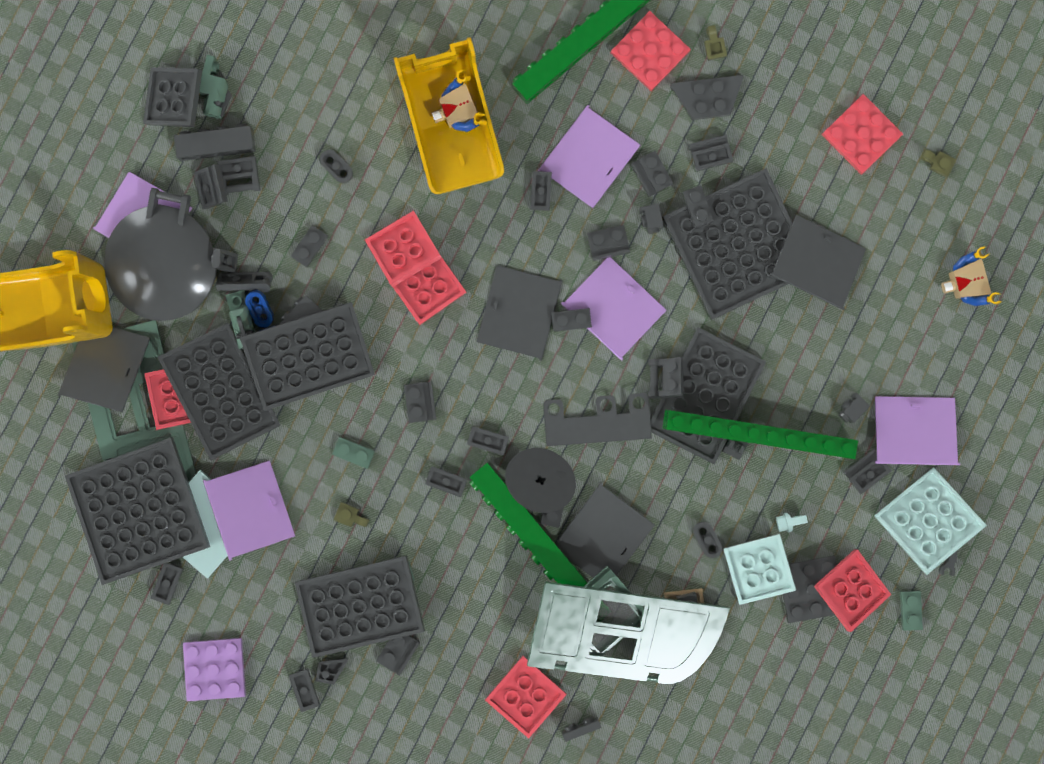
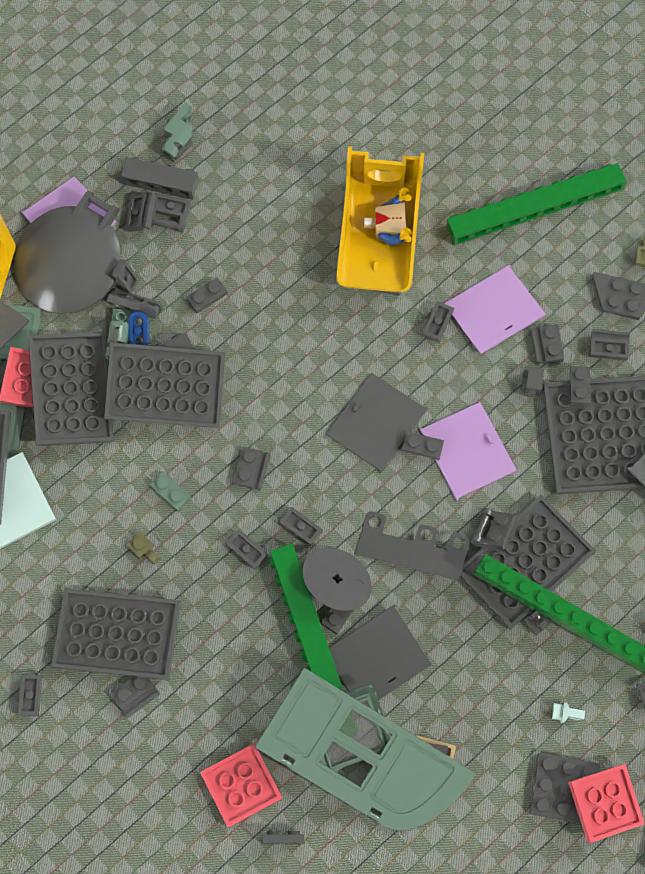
camera: 25 degrees right, 15 degrees down
(172, 97) = (139, 126): dark grey plate -> none
(249, 509) = (50, 503): lavender piece -> none
(329, 670) = (62, 686): dark grey piece -> none
(336, 167) = (260, 236): dark grey plate -> none
(403, 248) = (291, 325): coral plate -> none
(430, 291) = (300, 366): coral plate -> none
(608, 243) = (483, 390): dark grey plate -> none
(650, 51) = (584, 238): coral plate -> none
(707, 539) = (478, 700): dark grey plate -> none
(759, 569) = (520, 746): light aqua plate -> none

